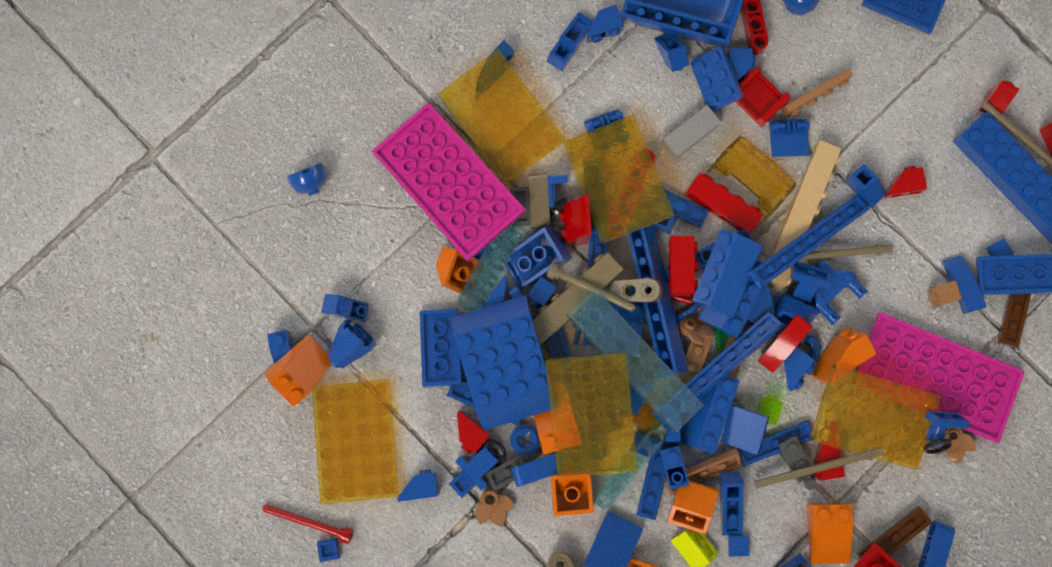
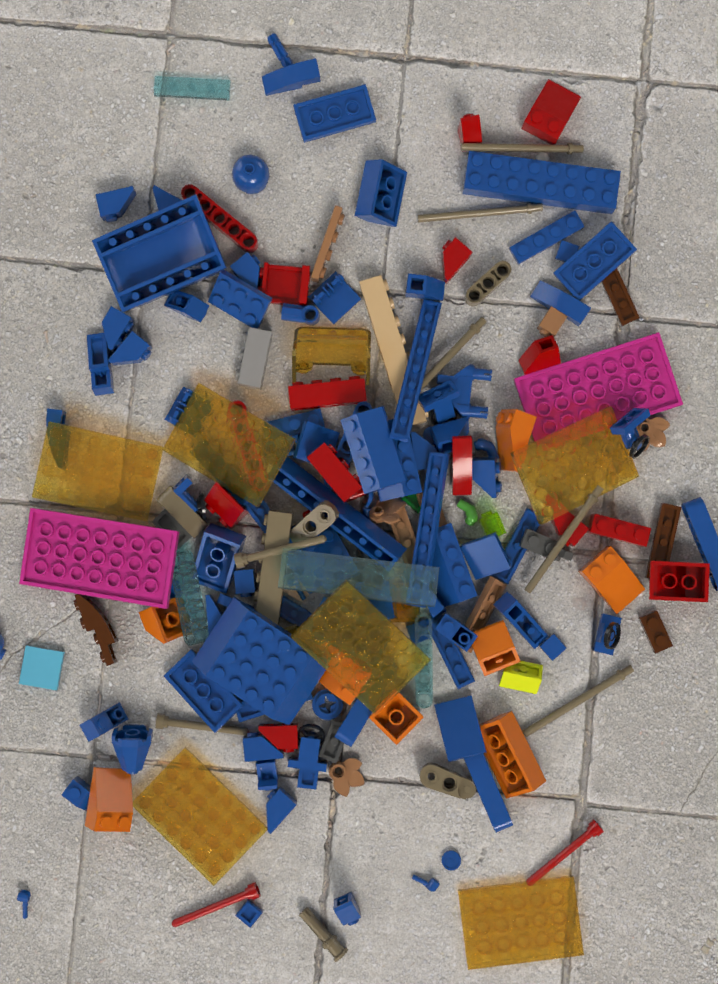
camera: 40 degrees left, 5 degrees up
(171, 389) = (24, 896): none -> blue hand
(333, 228) = (41, 667): none -> medium azure tile
(390, 346) = (164, 721): none -> dark tan piece
(404, 227) = (95, 620): none -> reddish brown slope
(434, 453) = (267, 774): none -> blue bracket
(445, 428) = (259, 748): none -> blue slope
(601, 50) = (131, 351): none -> blue slope
(684, 225) = (311, 438): none -> blue tile
(752, 126) = (298, 314): none -> blue piece
(760, 386) = (471, 513): none -> bright green arm
(867, 498) = (619, 530): none -> red brick
(890, 88) = (381, 193): none -> blue slope
(915, 311) = (540, 355): none -> red slope
(926, 220) = (492, 275): none -> dark tan beam
(992, 226) = (546, 237): none -> blue plate
(996, 193) = (529, 208): none -> dark tan bar

